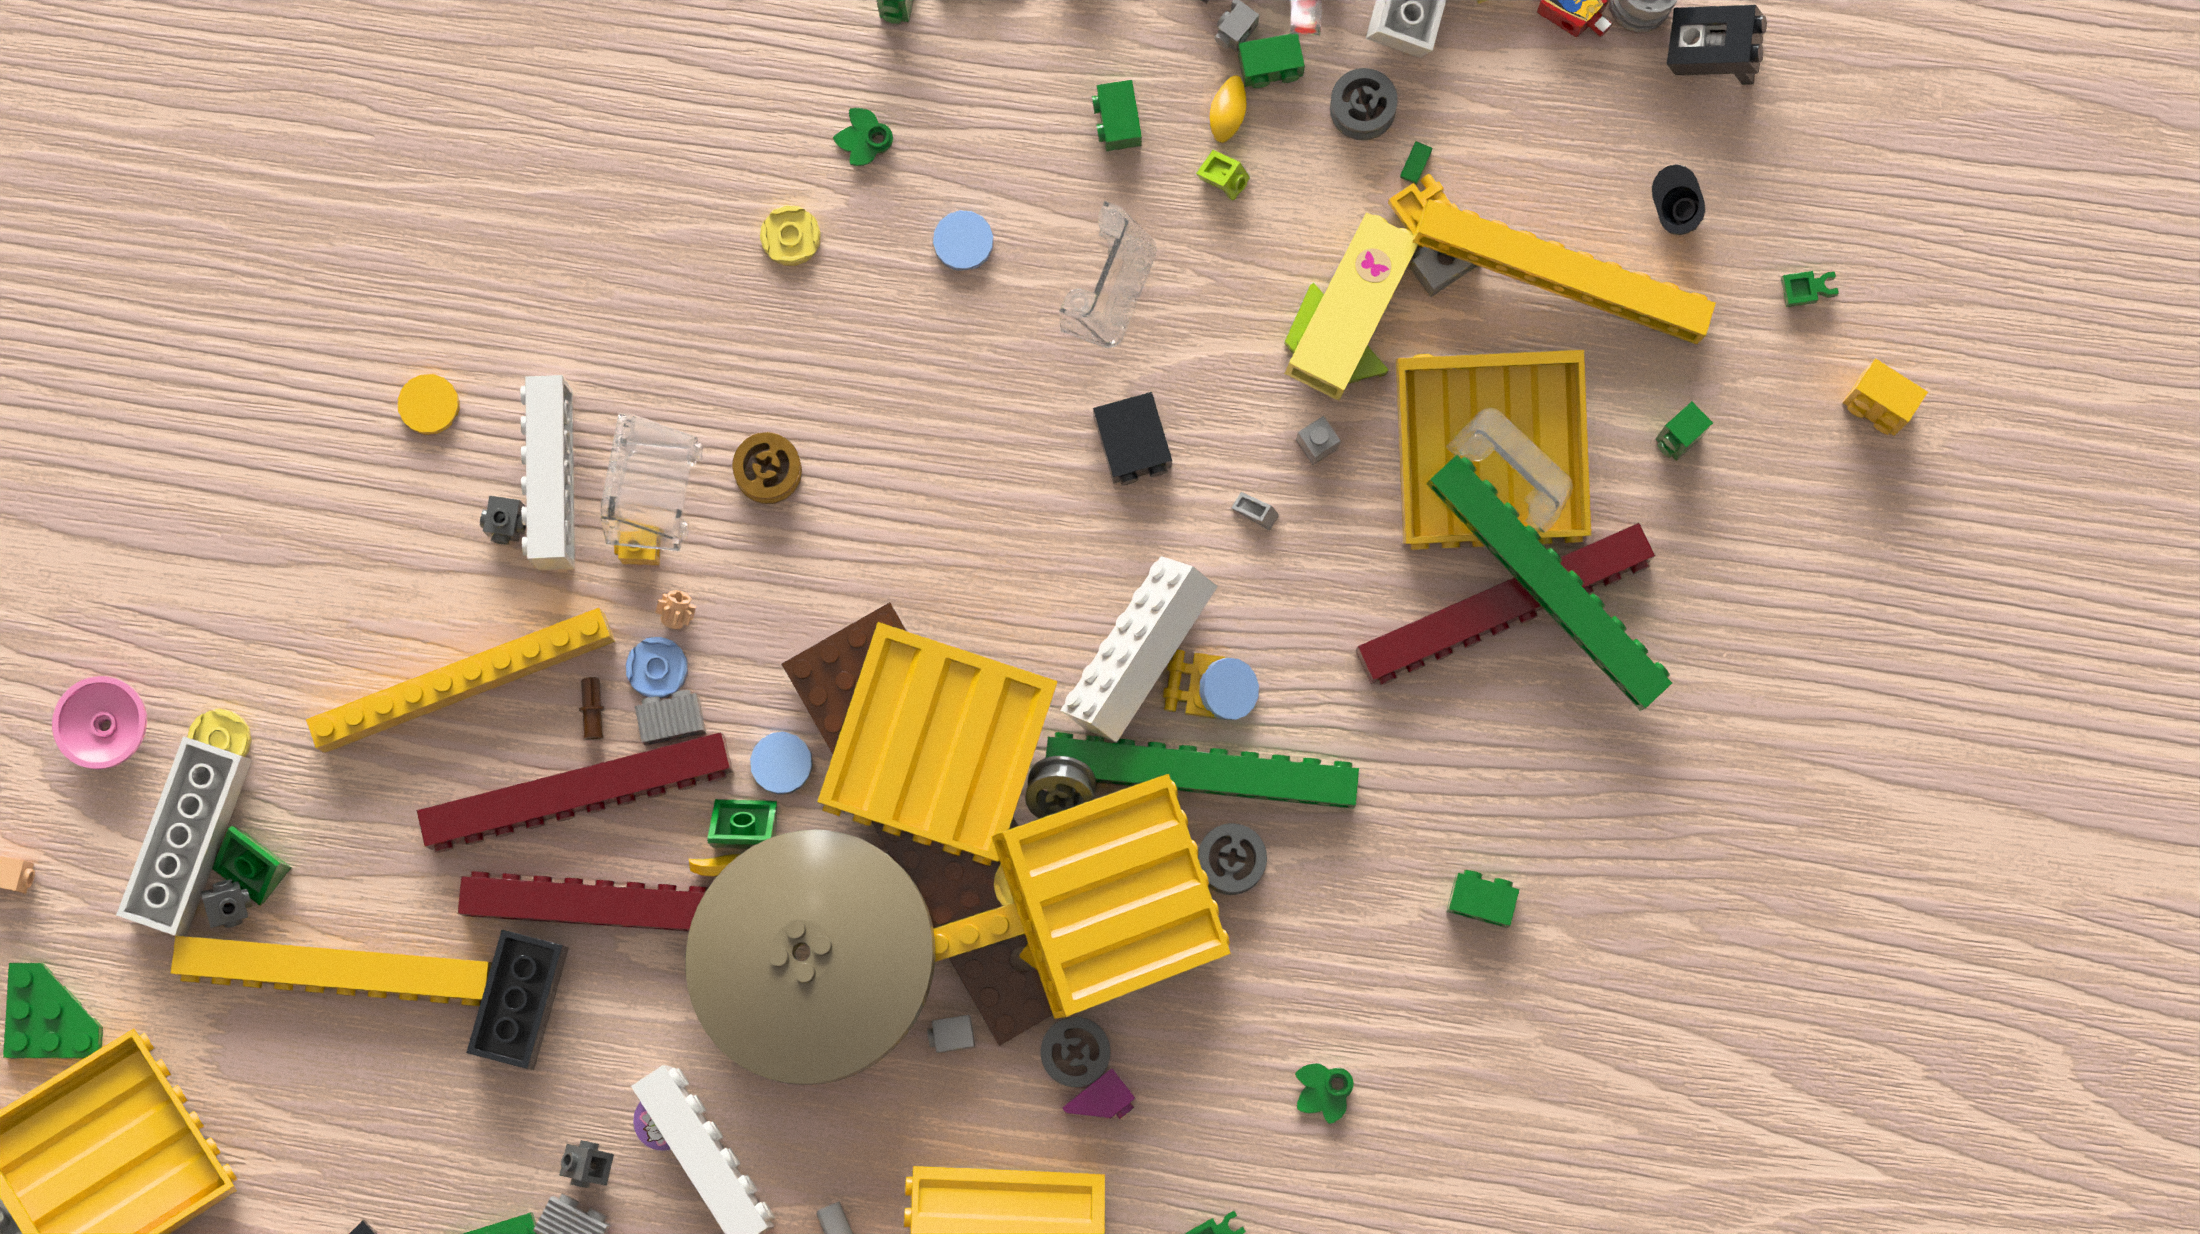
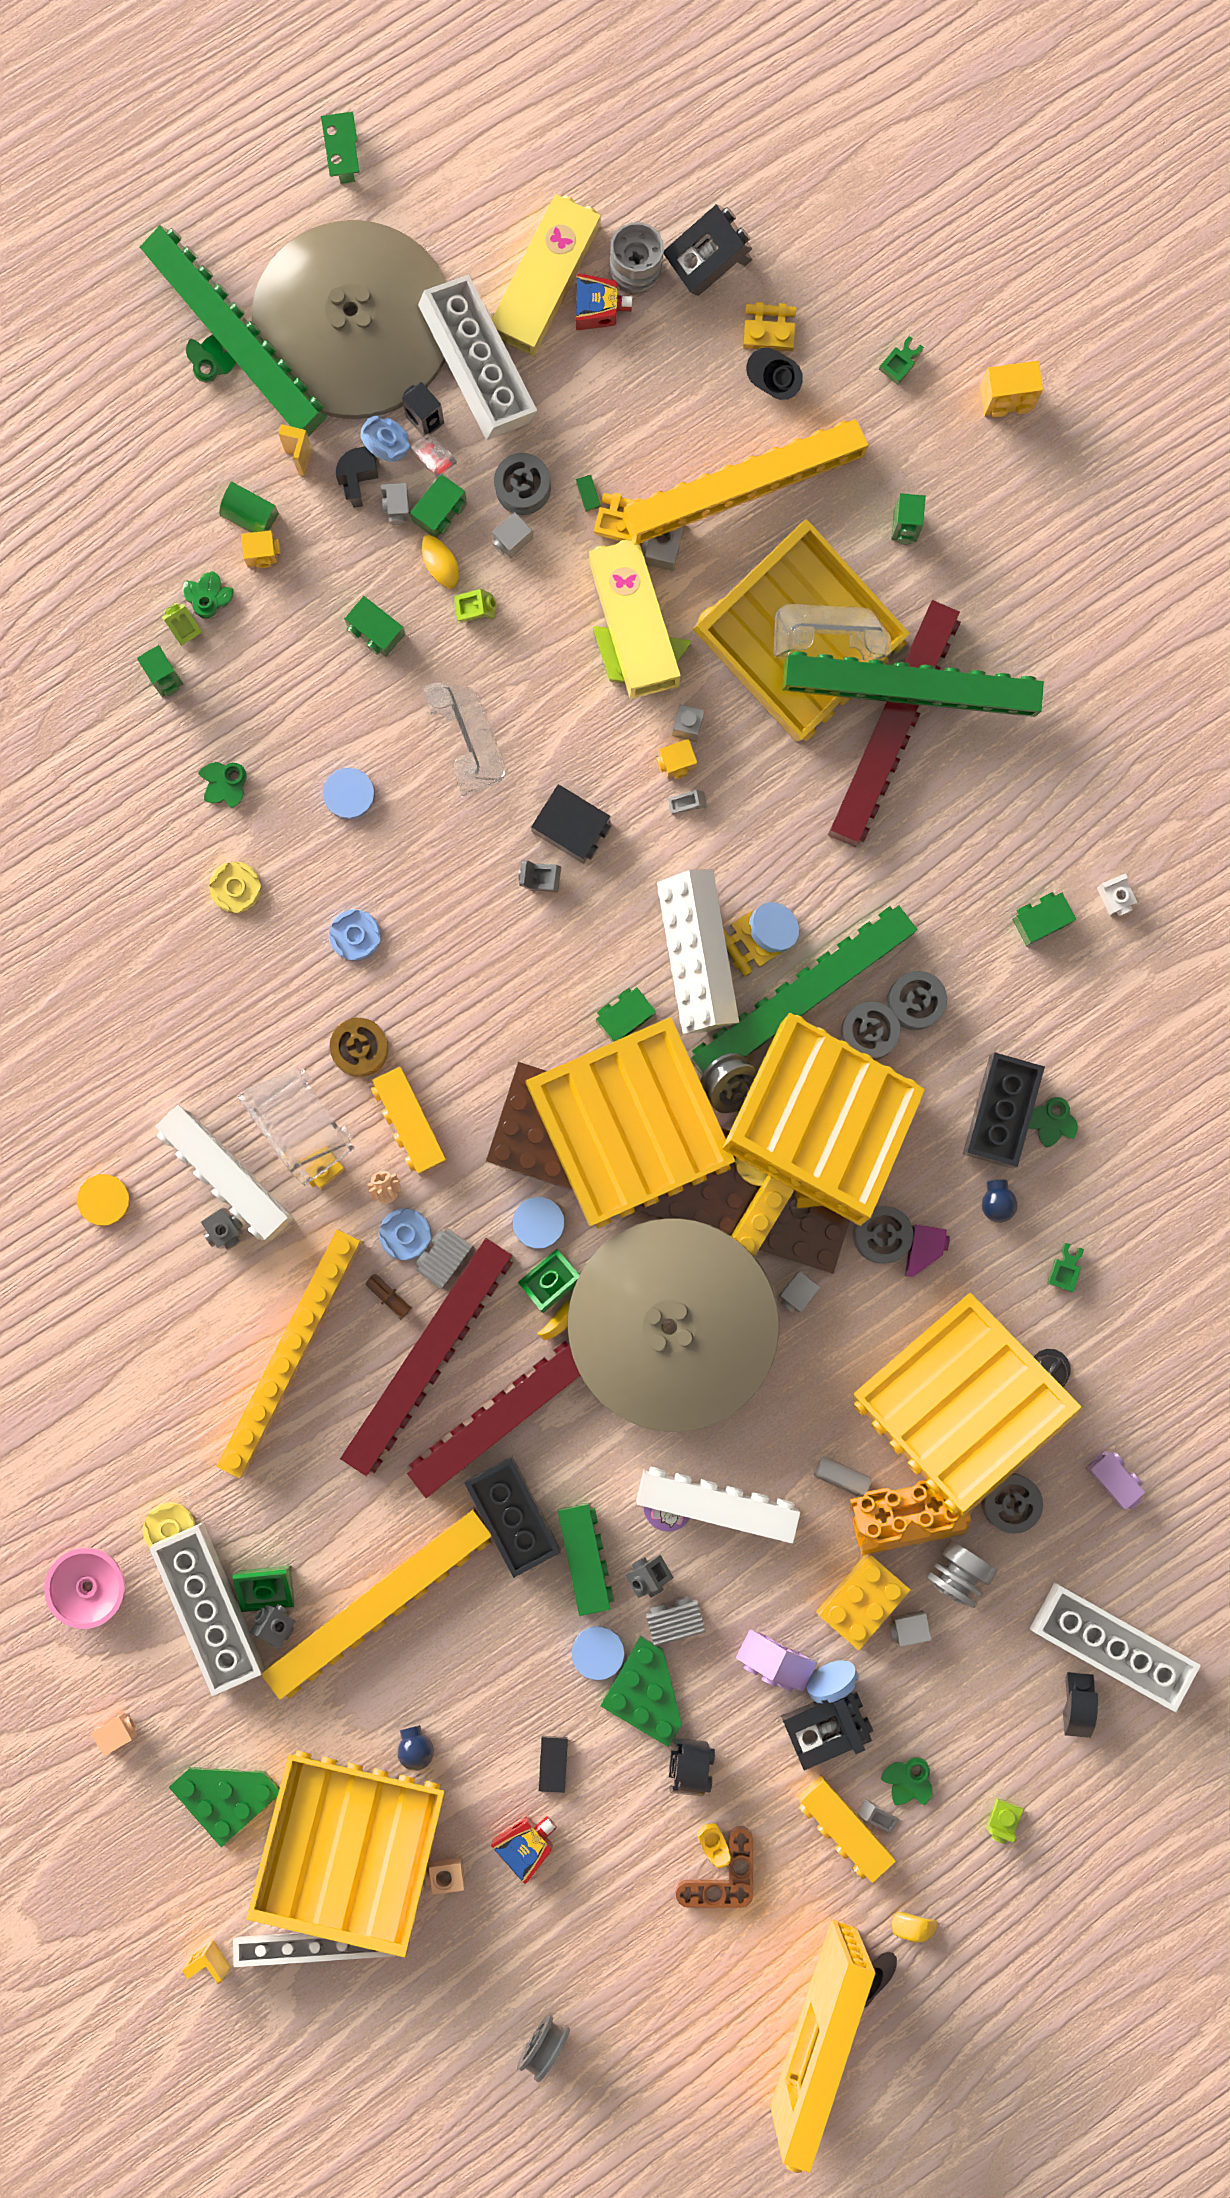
camera: 50 degrees left, 5 degrees up
(245, 1127) = (415, 1749): none -> dark blue piece
(480, 1192) = (597, 1652): none -> light blue tile
(545, 1097) = (584, 1558): none -> green brick
(751, 571) = (409, 1120): none -> yellow brick
(855, 368) = (354, 935): none -> light blue tile
(1026, 648) = (625, 1015): none -> green brick
(1062, 459) = (539, 876): none -> dark grey bracket
(1207, 1118) = (999, 1202): none -> dark blue piece
(1278, 464) = (677, 759): none -> yellow brick
(1286, 1038) = (1003, 1110): none -> black brick
(1311, 141) = (511, 536): none -> light grey brick
(1323, 876) = (934, 991): none -> dark grey wheel
(1570, 926) = (1108, 894): none -> white brick
(1707, 162) = (769, 334): none -> yellow plate

